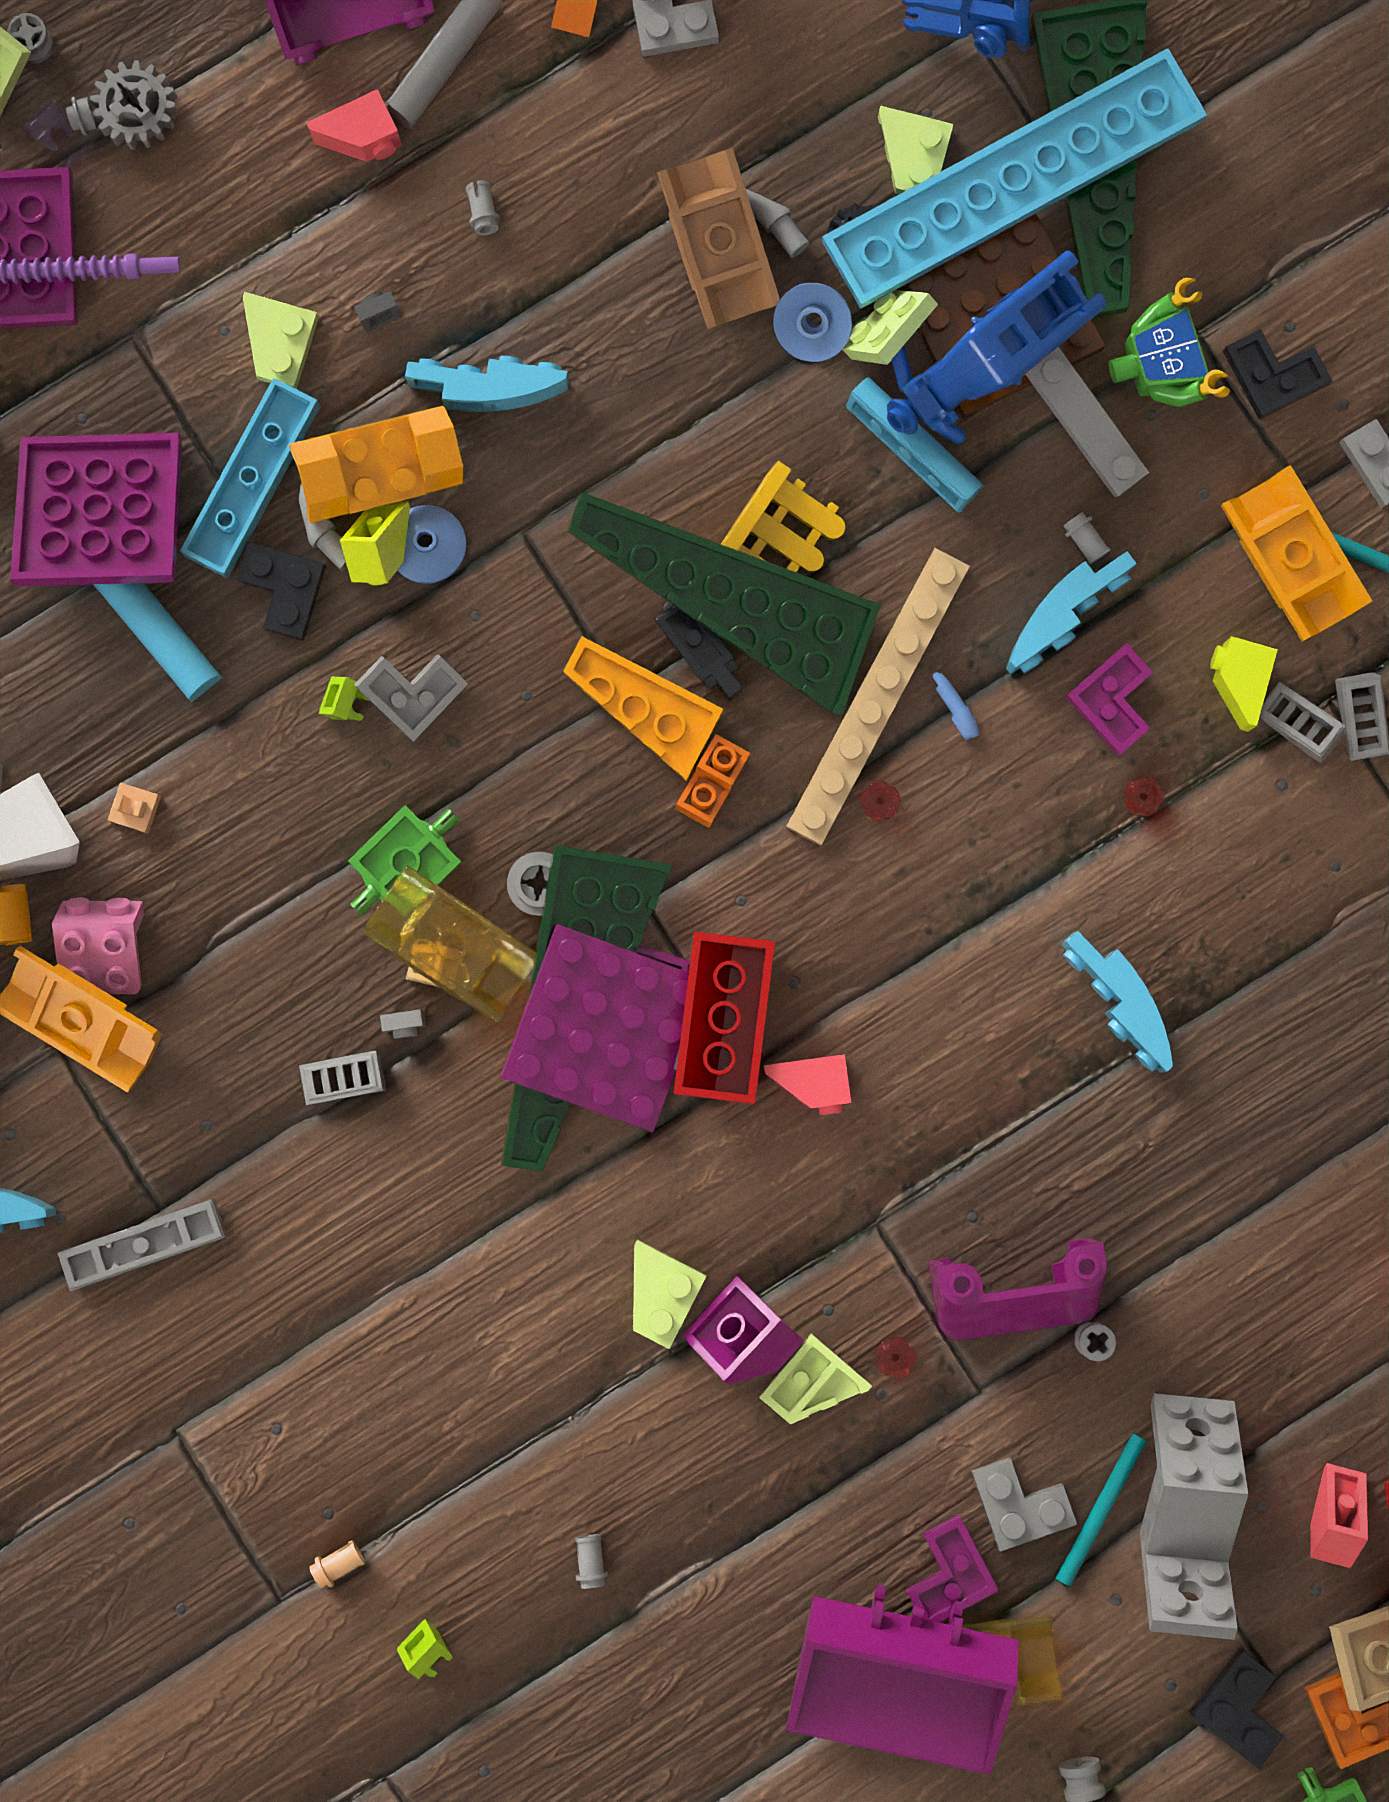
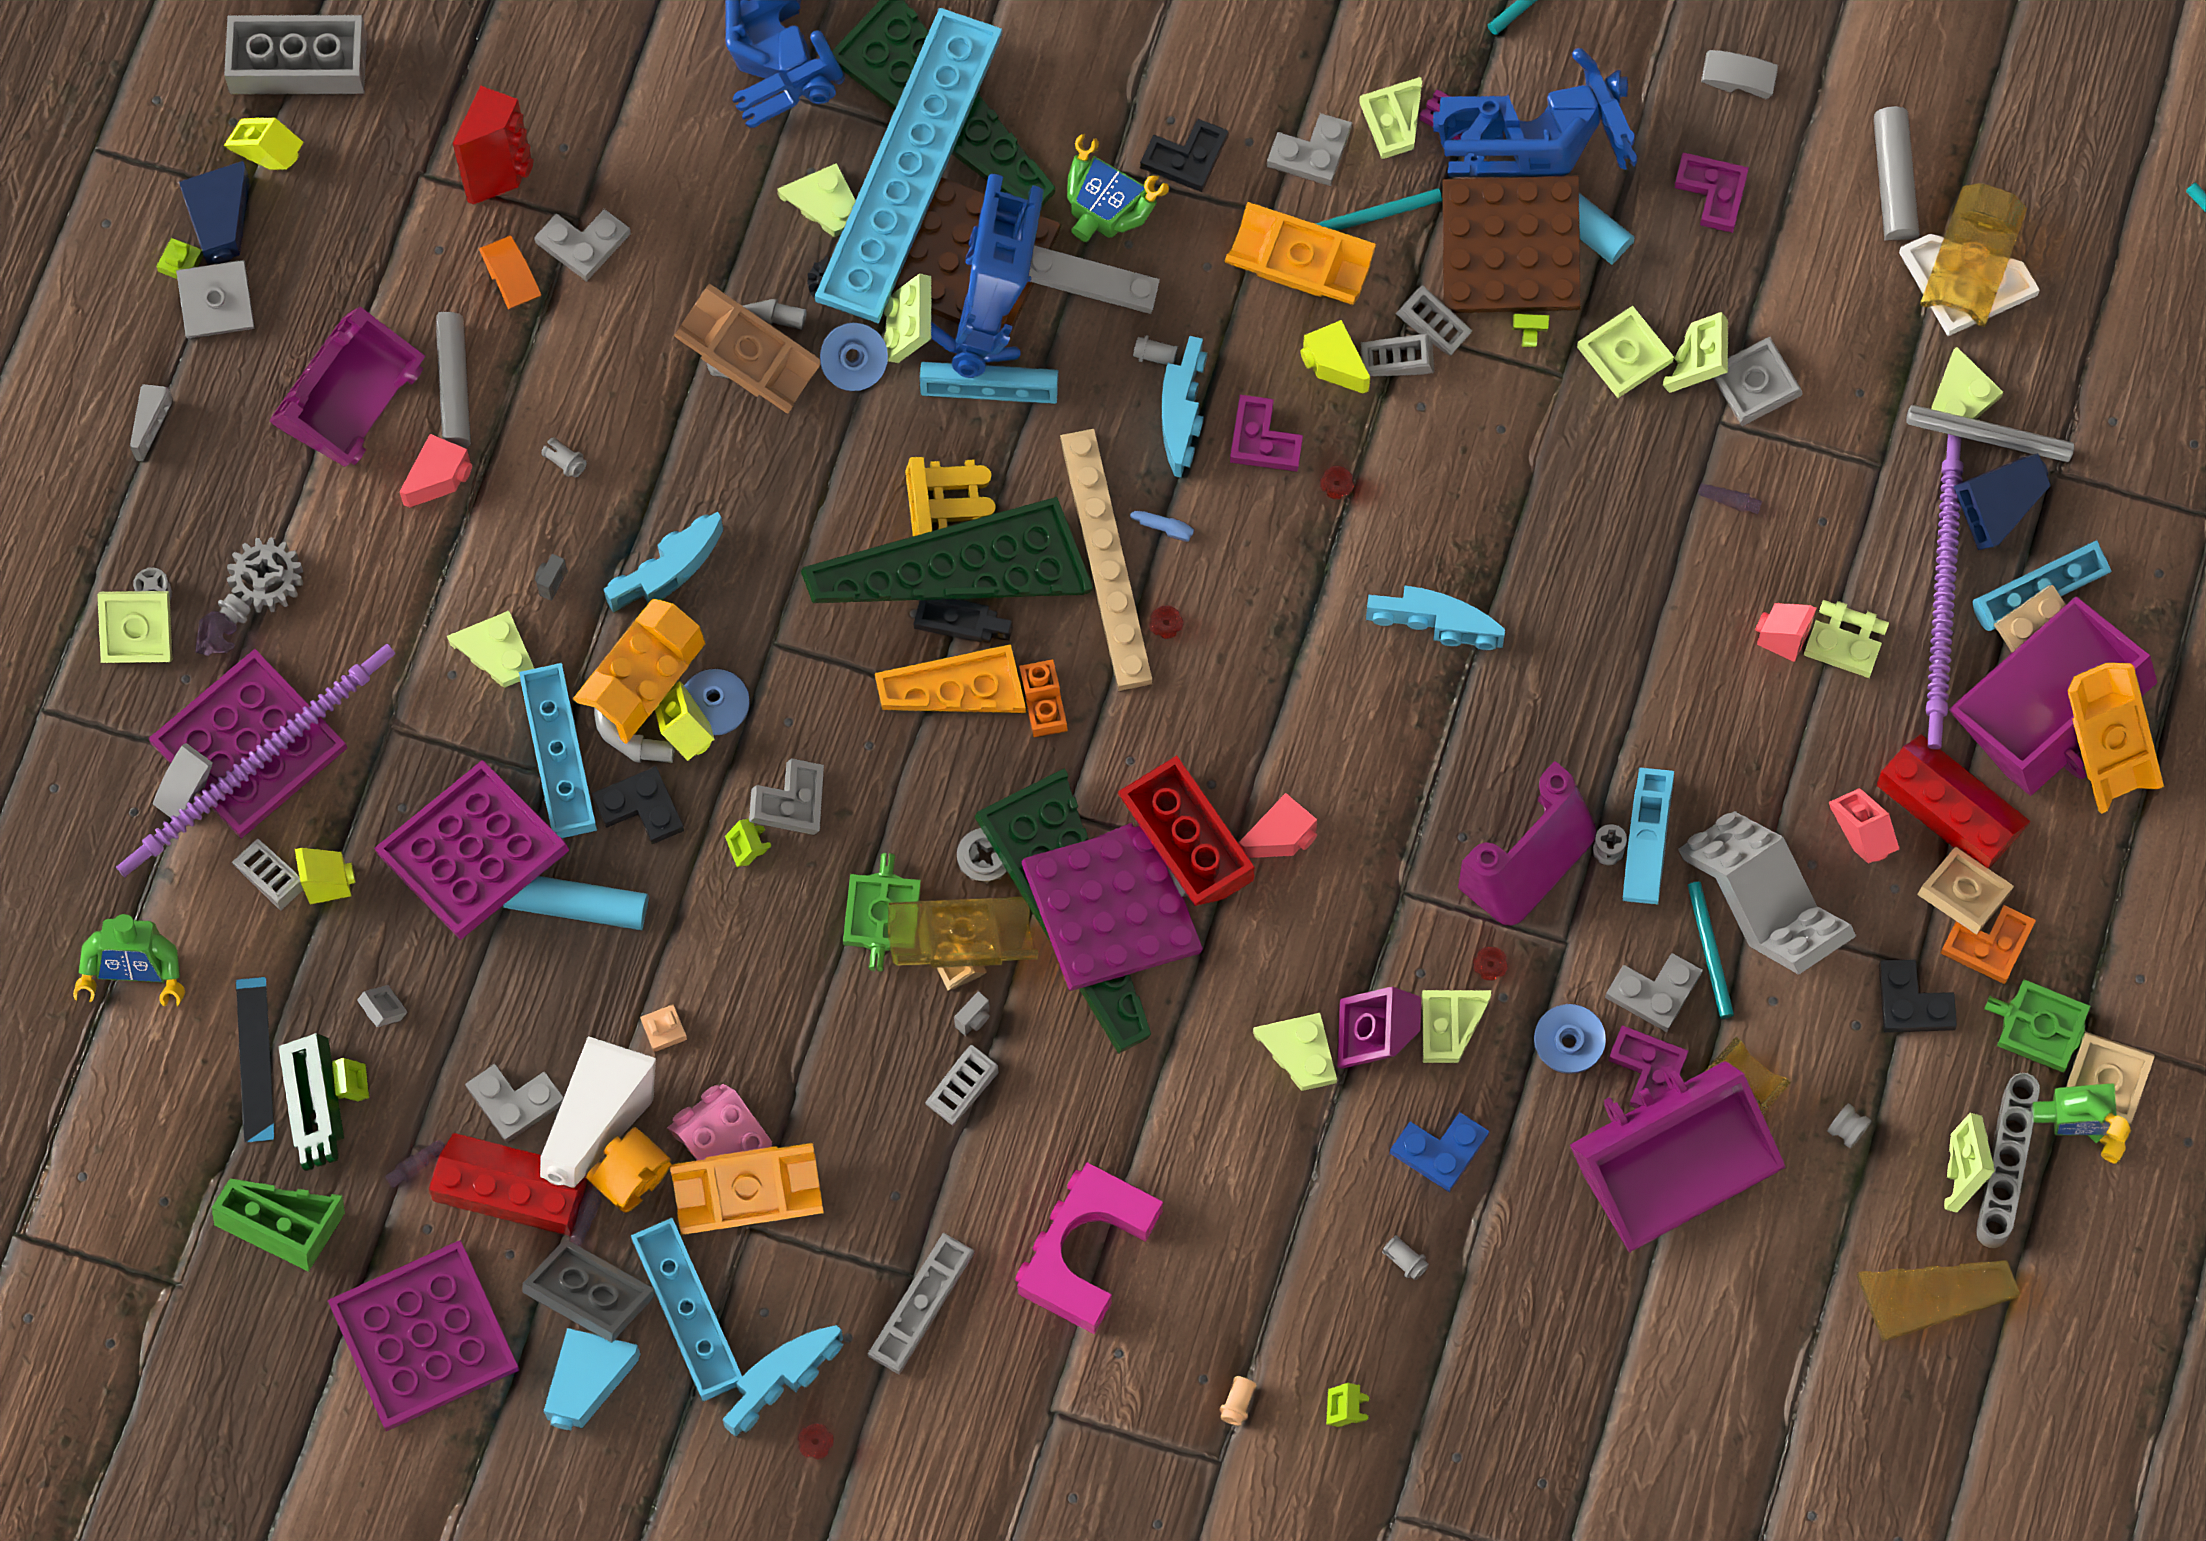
camera: 40 degrees left, 15 degrees down
(267, 1317) = (1092, 1198): none -> dark pink arch
(702, 1499) = (1442, 1159): none -> blue plate
(910, 1509) = (1574, 1023): none -> medium blue dish
(1136, 1363) = (1648, 835): none -> medium azure slope

